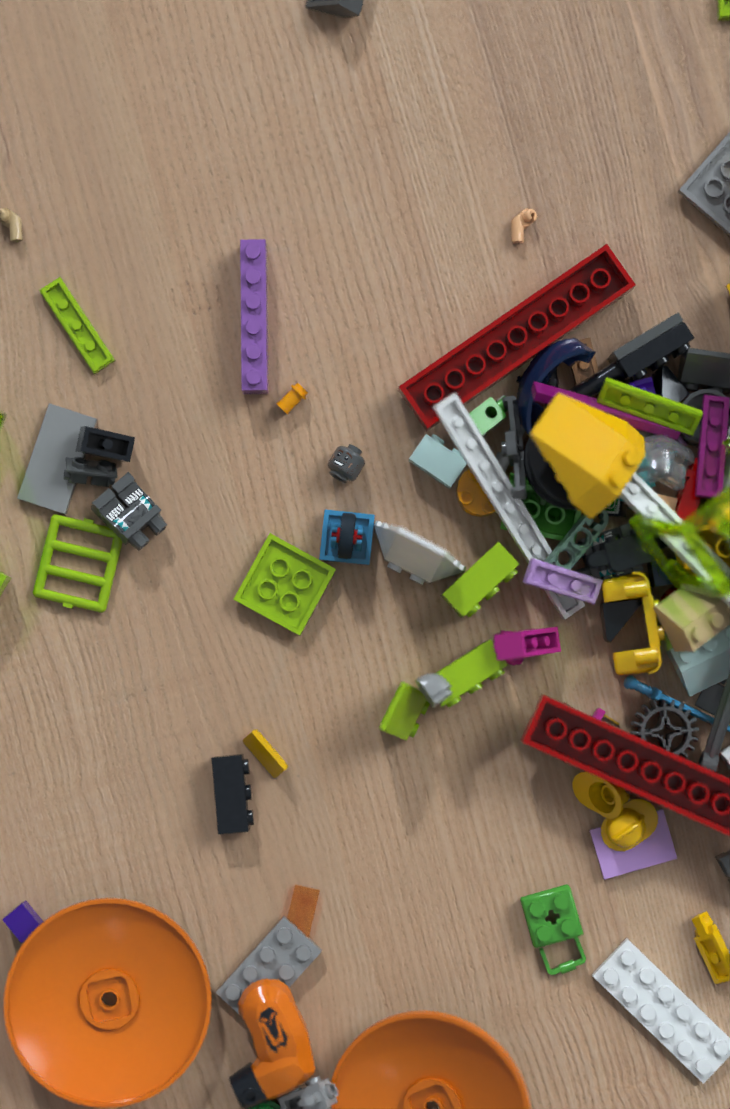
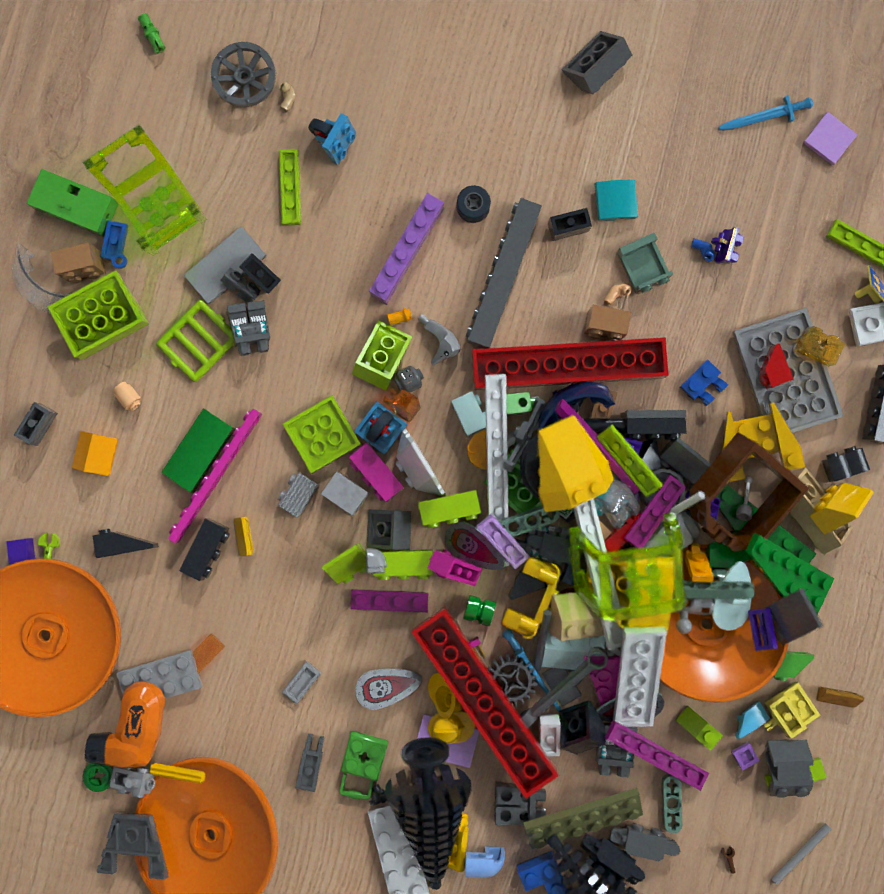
camera: 30 degrees right, 0 degrees up
(37, 674) = (127, 396): none -> light nougat brick
(38, 761) = (95, 453): none -> light orange slope
(52, 902) = (48, 547): none -> lime bar
(93, 238) = (334, 136): none -> dark azure plate
(128, 846) = (116, 543): none -> black slope
(154, 687) = (198, 450): none -> green slope
(191, 714) = (210, 482): none -> dark pink plate
(298, 211) = (473, 197): none -> black wheel
(299, 454) = (381, 355): none -> lime slope
(299, 668) = (298, 494): none -> light grey brick
(352, 634) = (345, 493): none -> flat silver piece
(355, 1059) = (177, 773): none -> yellow axle
(359, 495) = (404, 404): none -> clear orange brick
(367, 396) = (448, 343): none -> light grey animal
(372, 591) = (375, 473): none -> dark pink brick
(381, 278) = (504, 273): none -> dark grey brick
(422, 179) = (569, 224): none -> black brick
(425, 646) = (389, 529): none -> dark grey slope
(431, 877) = (301, 682): none -> light grey tile
(457, 119) = (616, 200): none -> teal slope
(474, 726) = (389, 600): none -> magenta plate
(497, 964) = (310, 765): none -> dark grey hinge
(529, 824) = (385, 687): none -> shield
(531, 266) = (607, 323): none -> medium nougat brick
(531, 608) = (472, 546): none -> shield
(532, 173) = (644, 264): none -> sand green panel
(582, 675) = (479, 610): none -> green wheel
(591, 115) = (705, 248): none -> blue arm
(595, 949) = (378, 797): none -> black plant
(611, 97) = (725, 245): none -> dark purple hips
(659, 925) = (429, 808): none -> black plant
(672, 665) = (542, 640): none -> dark grey bar
(674, 268) = (701, 379): none -> blue plate

